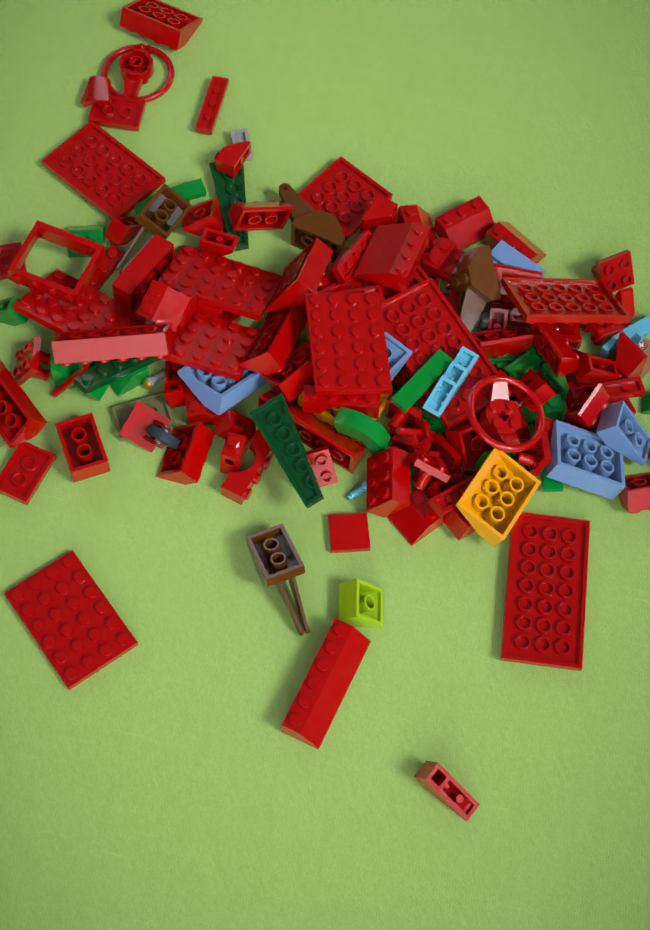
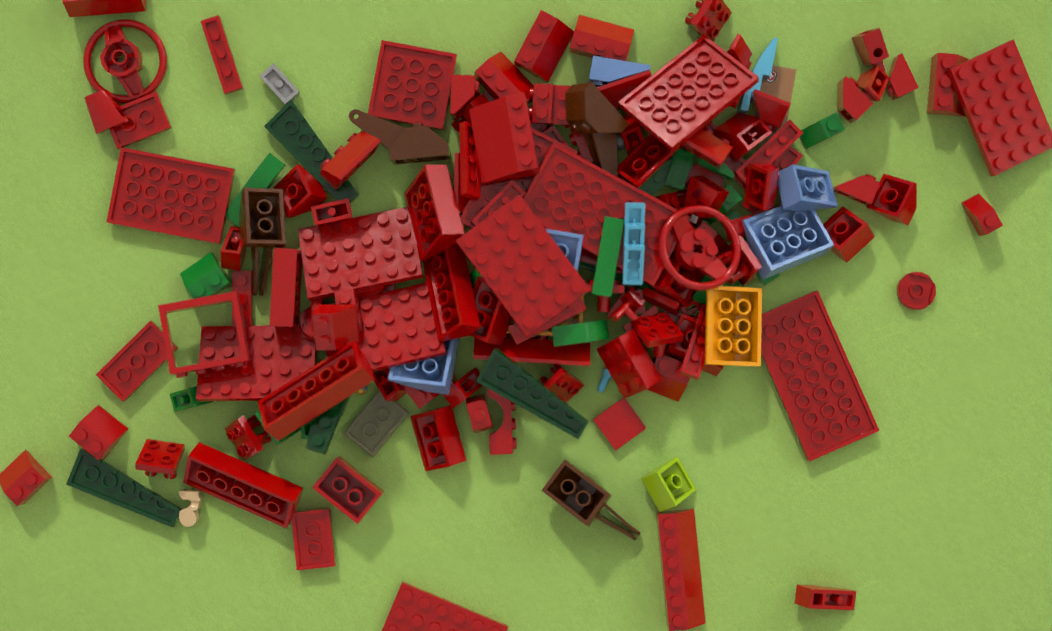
camera: 25 degrees left, 25 degrees up
(69, 381) = (295, 439): red bar -> none
(148, 428) = (394, 437): red plate -> none
(232, 157) = (284, 111): red slope -> none

